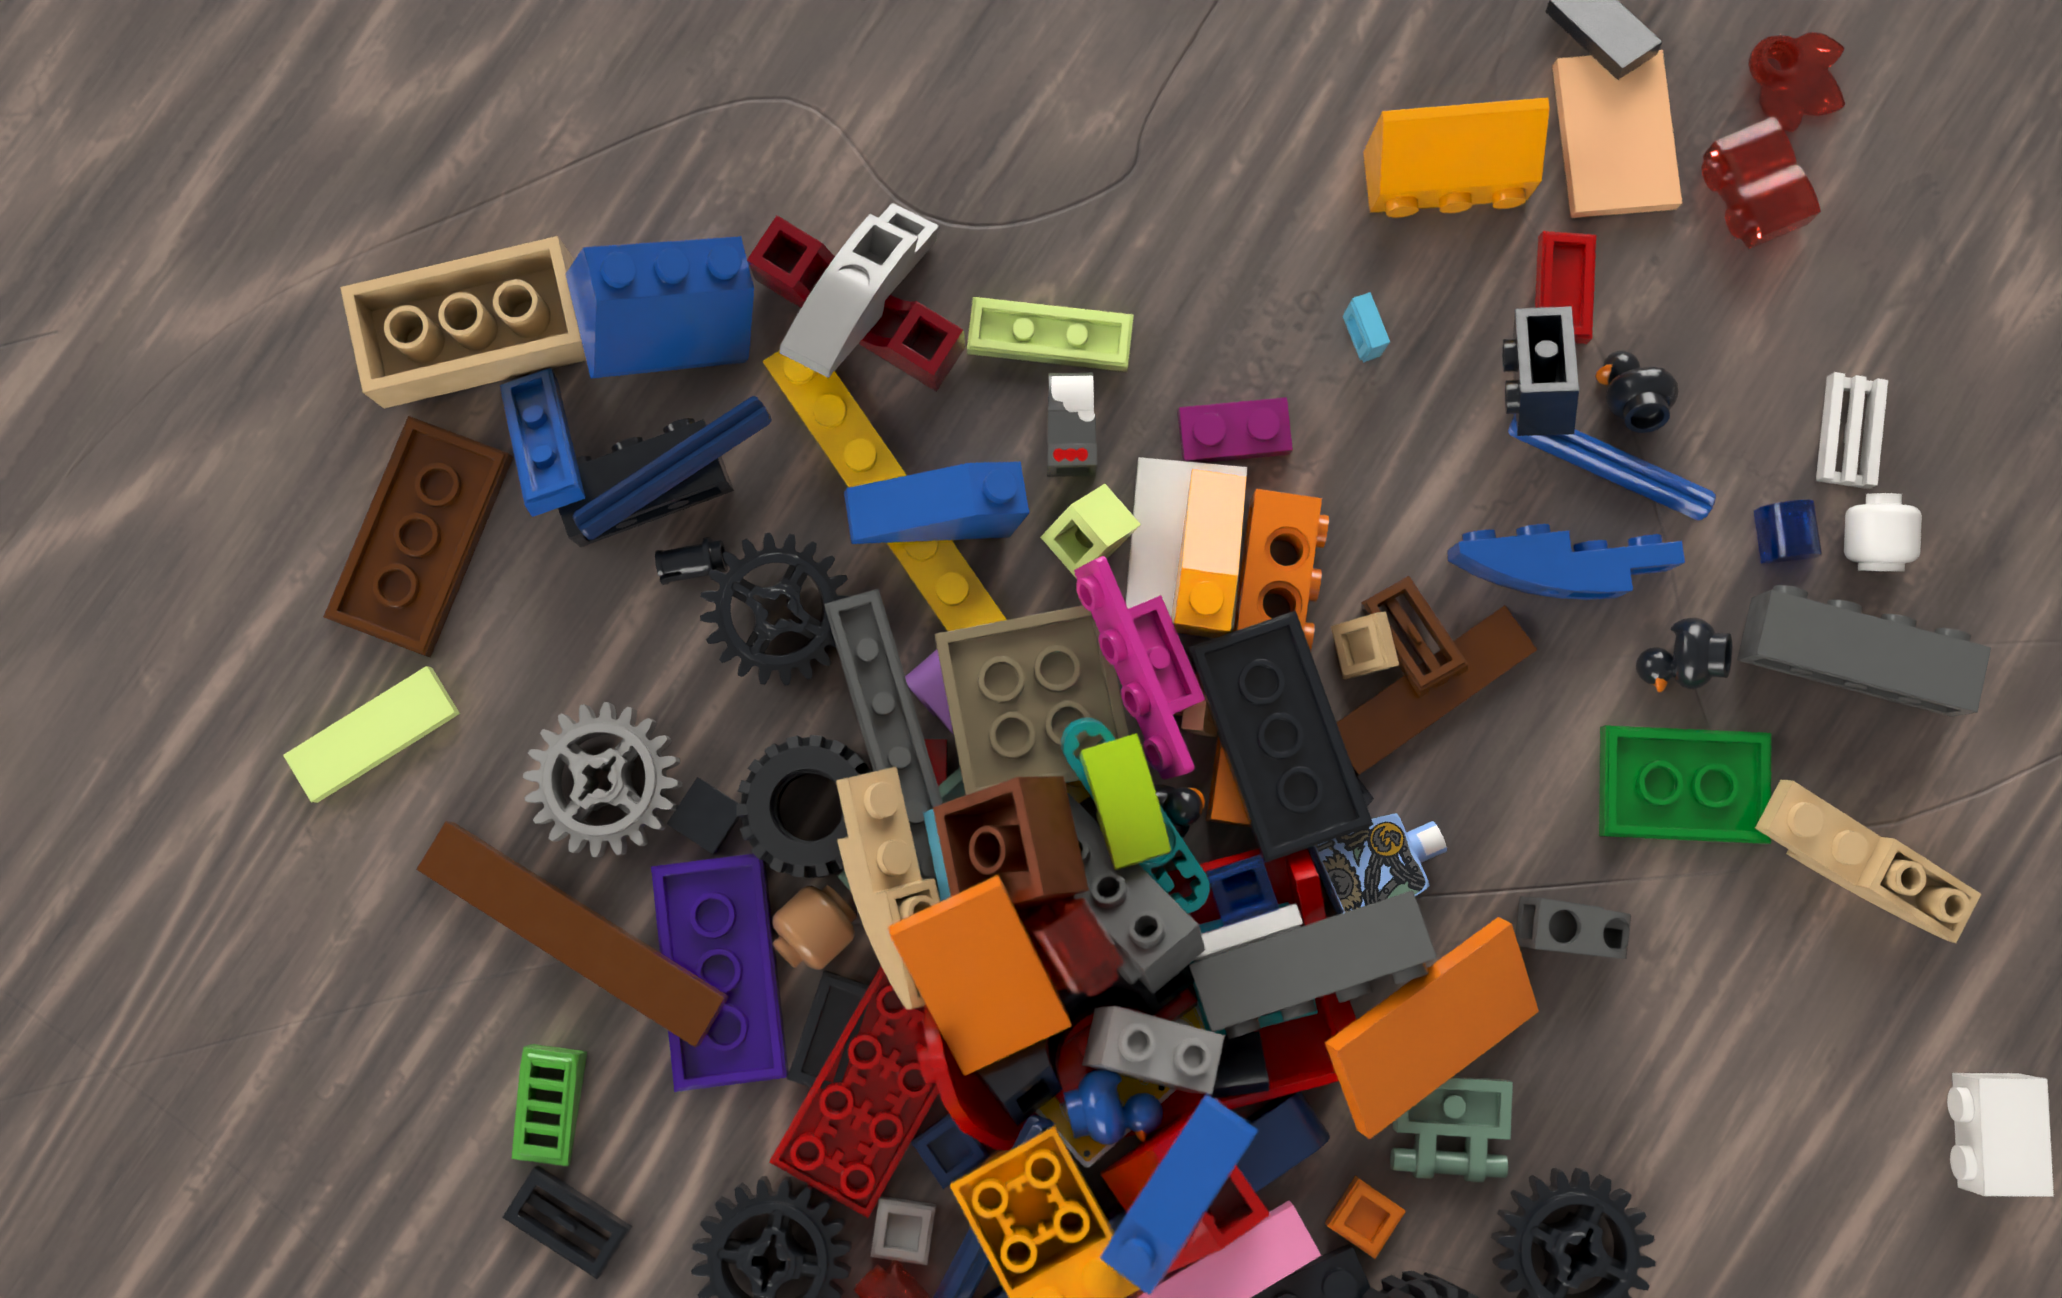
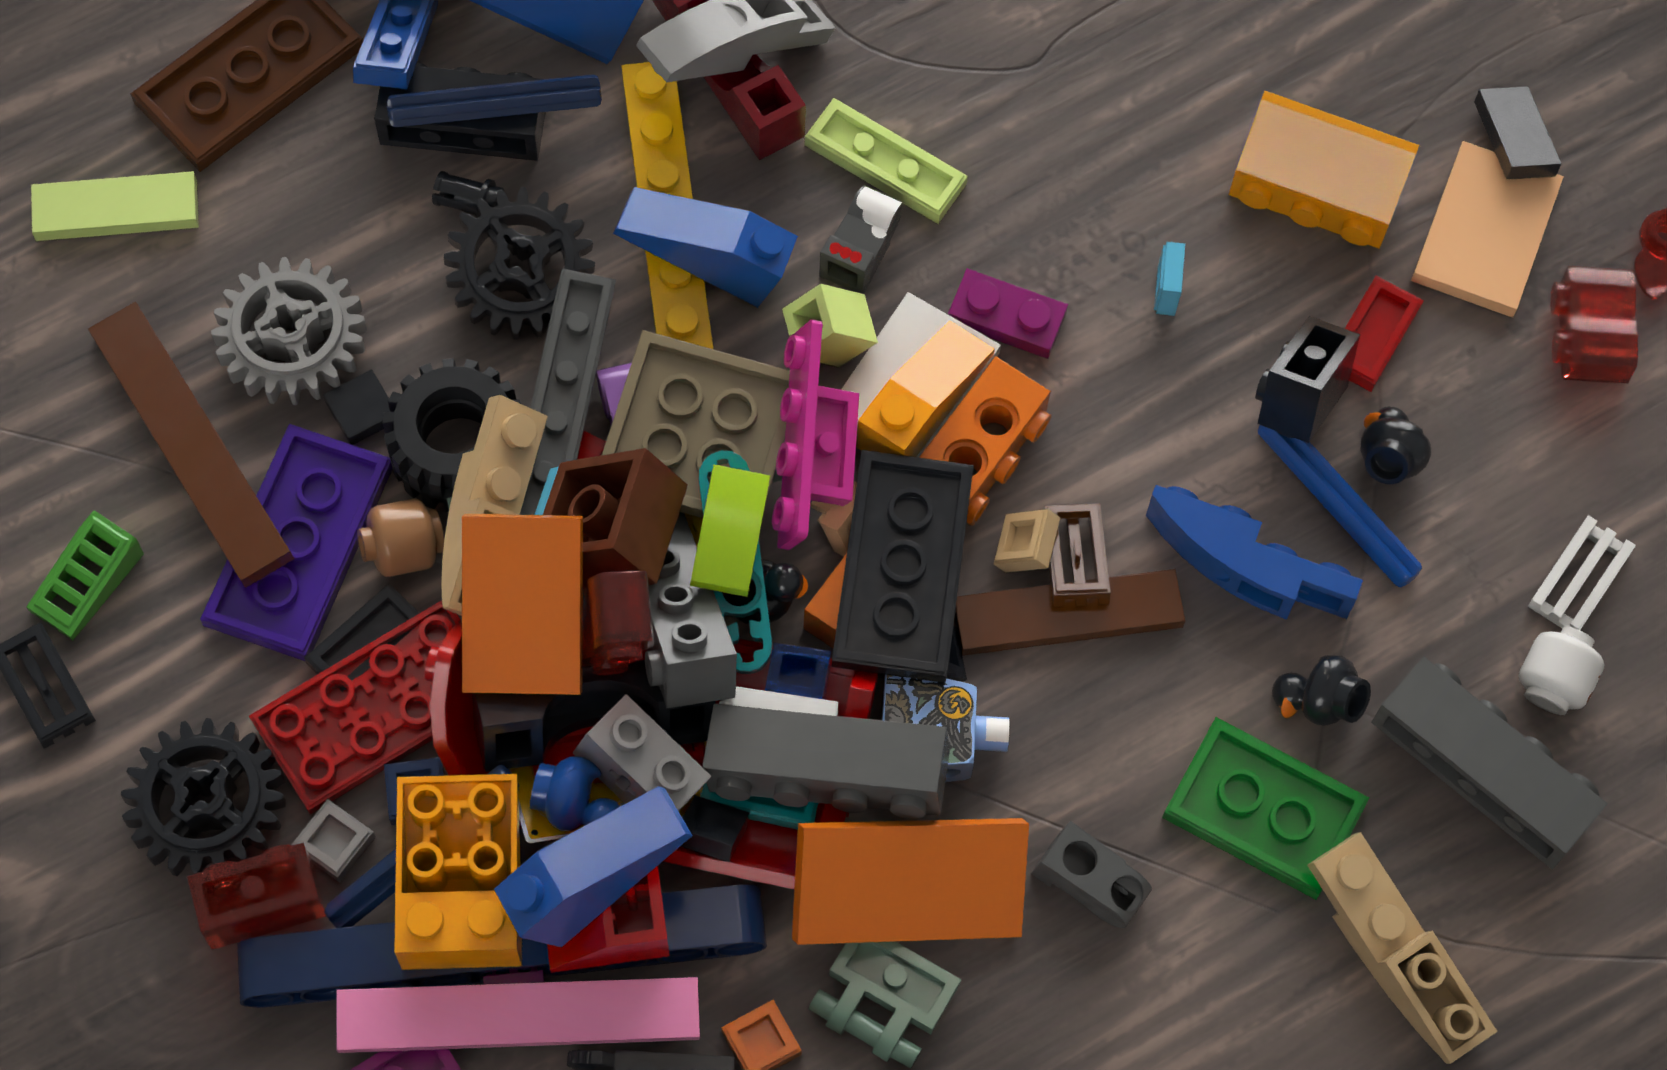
camera: 25 degrees right, 15 degrees down
(1787, 531) = (1476, 631): clear blue brick -> none

